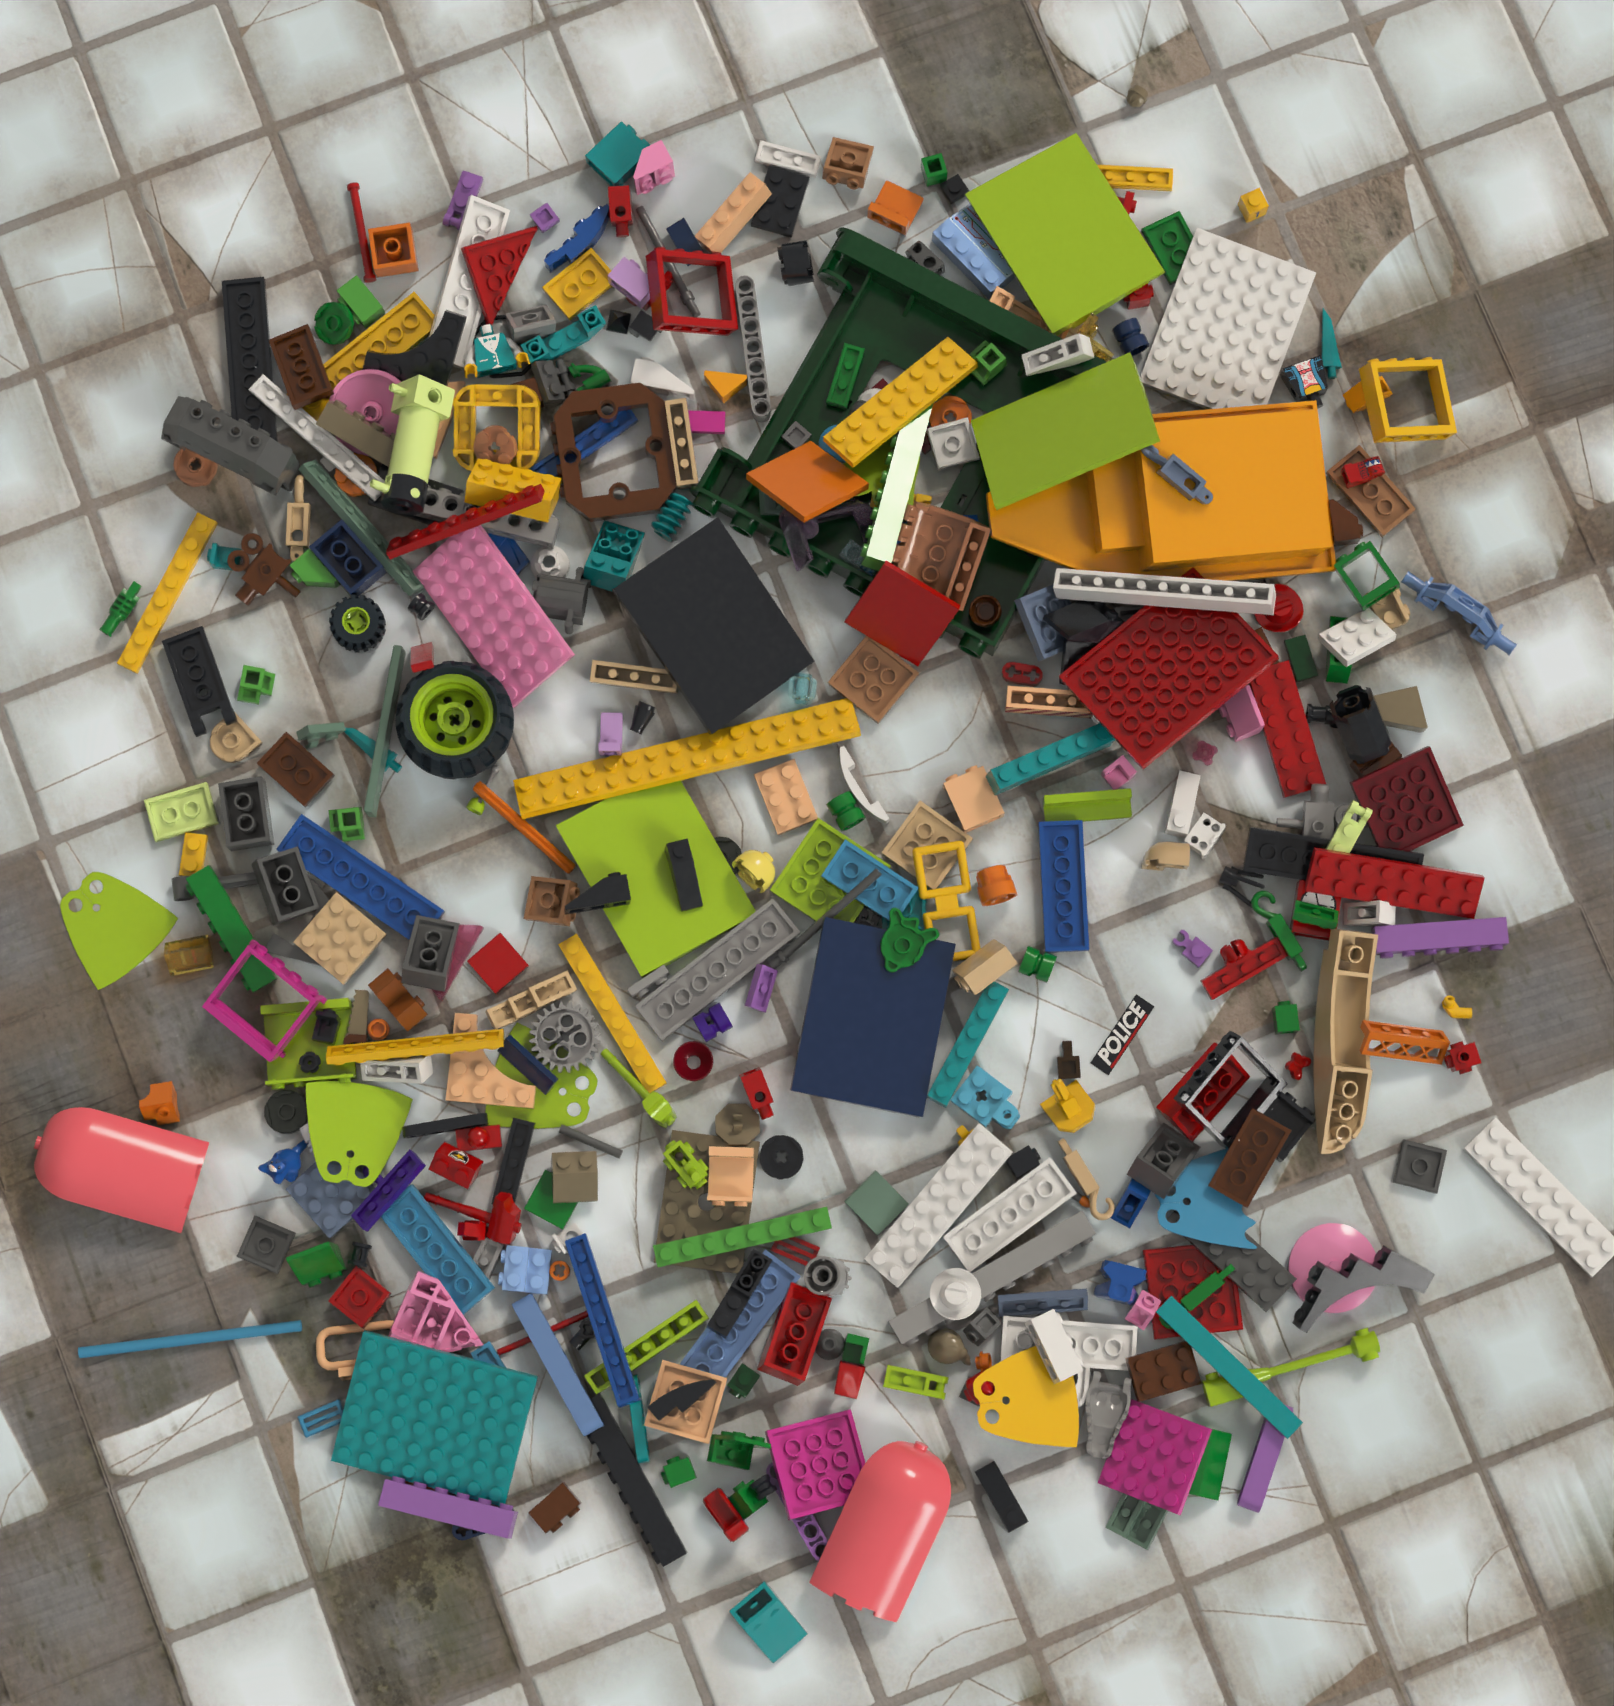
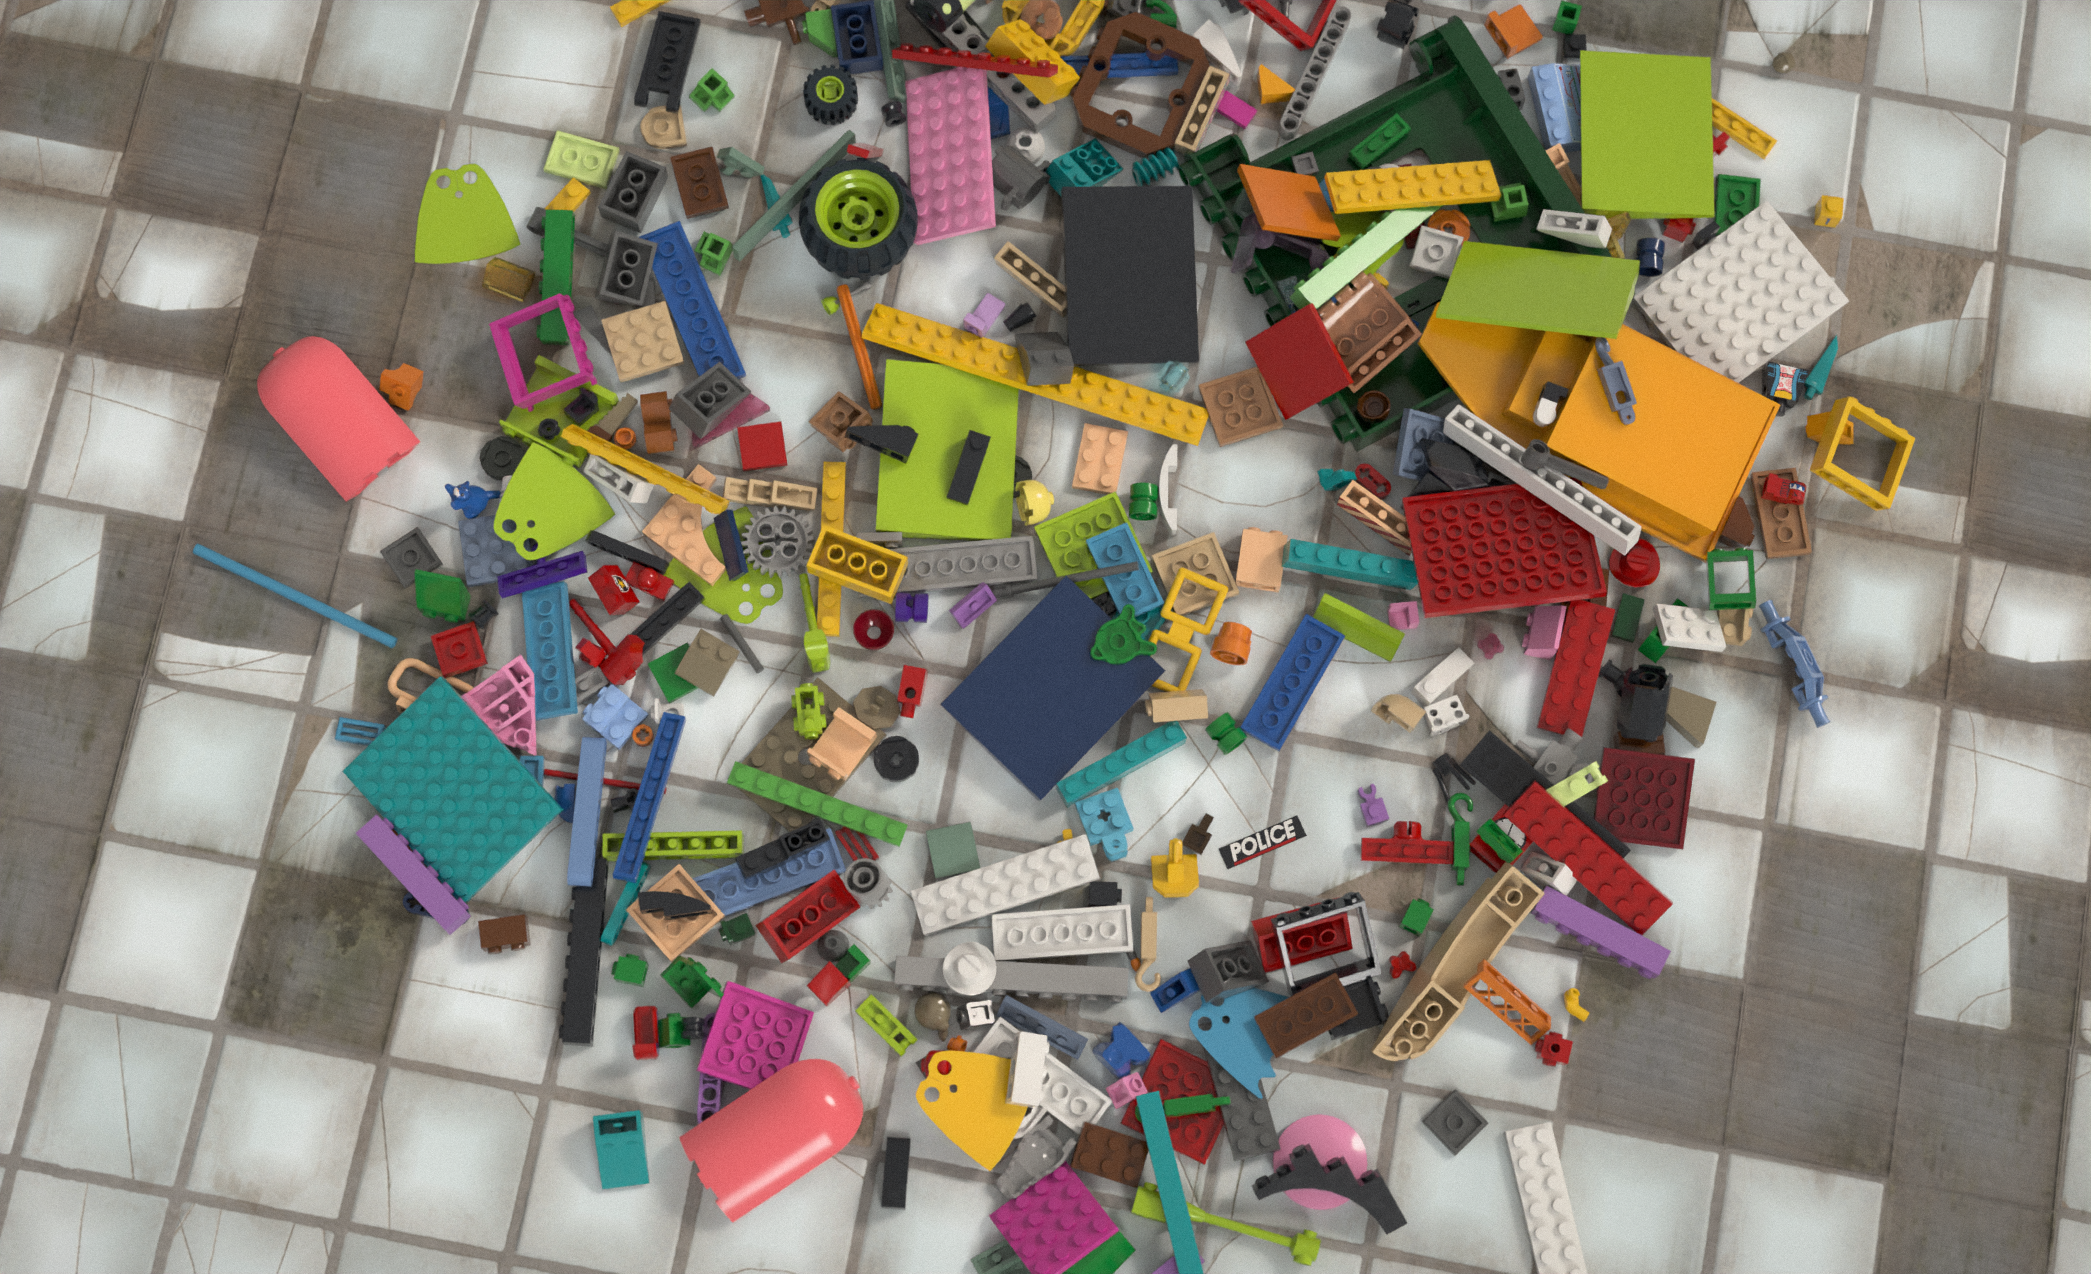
camera: 25 degrees right, 5 degrees down
(532, 1364) = (565, 797): none -> blue brick
(646, 1016) = (857, 564): none -> yellow brick
(686, 740) = (1044, 358): none -> dark grey slope
(990, 694) = (1335, 480): none -> teal bracket
(1131, 525) = (1548, 399): none -> leg
(1153, 575) = (1538, 456): none -> dark grey axle
(1167, 290) = (1706, 235): none -> black plate

